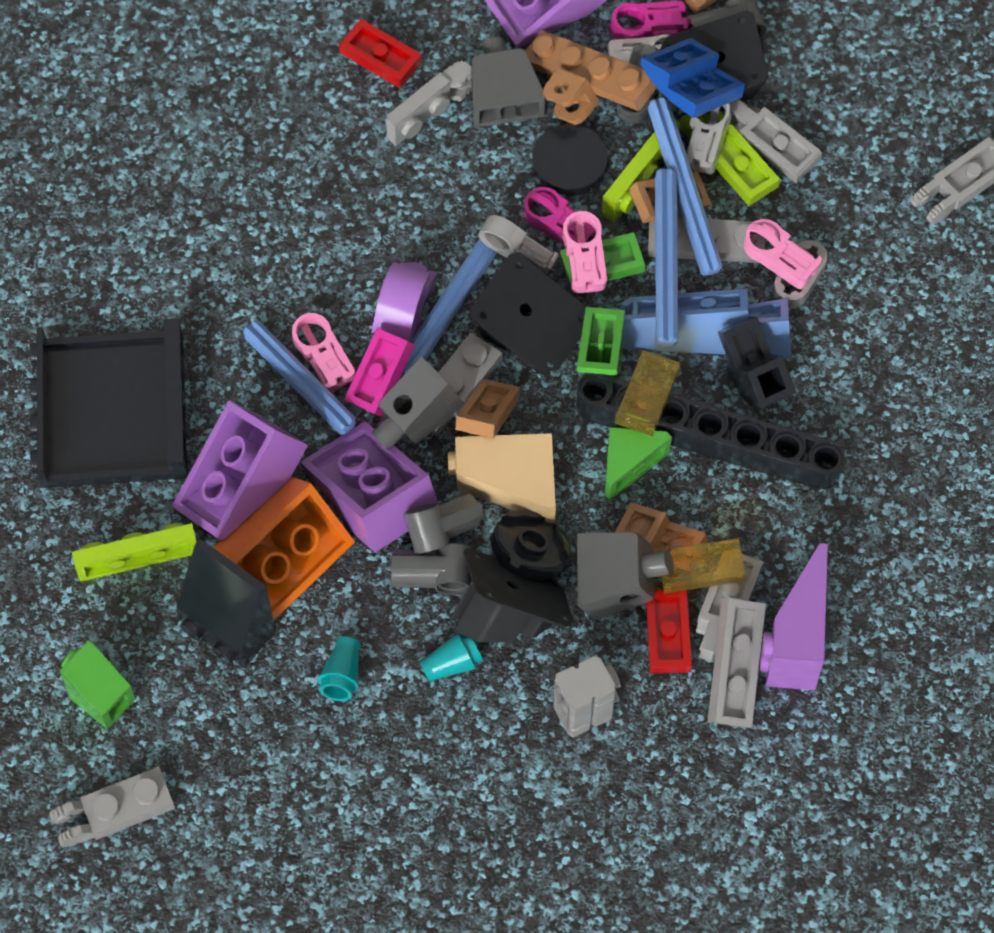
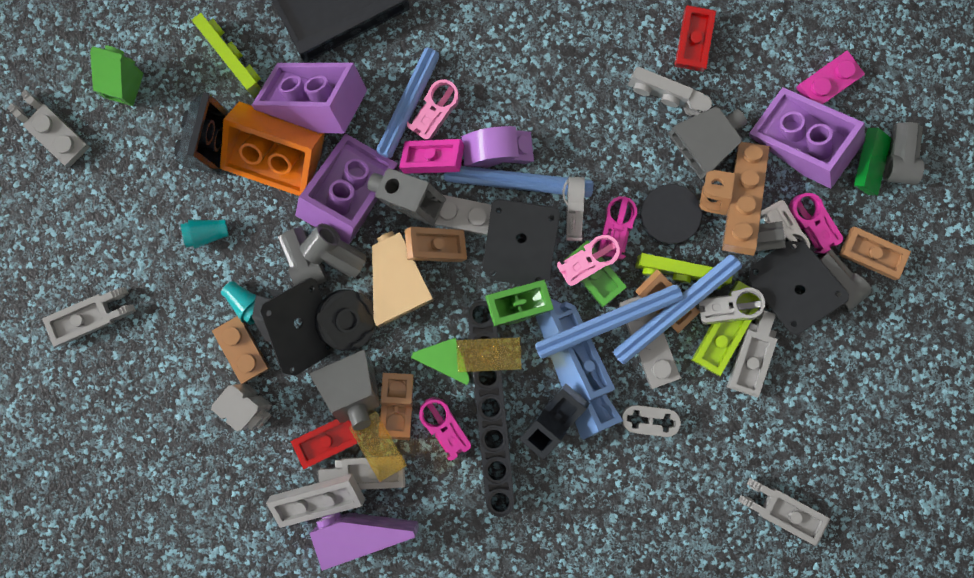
camera: 65 degrees right, 20 degrees up
(381, 857) = (85, 317): none -> light grey hinge
(509, 689) = (241, 350): none -> medium nougat plate
(691, 78) = (766, 278): blue slope -> none
(717, 492) = (446, 431): none -> dark pink piece
(786, 257) = (653, 409): bright pink piece -> none

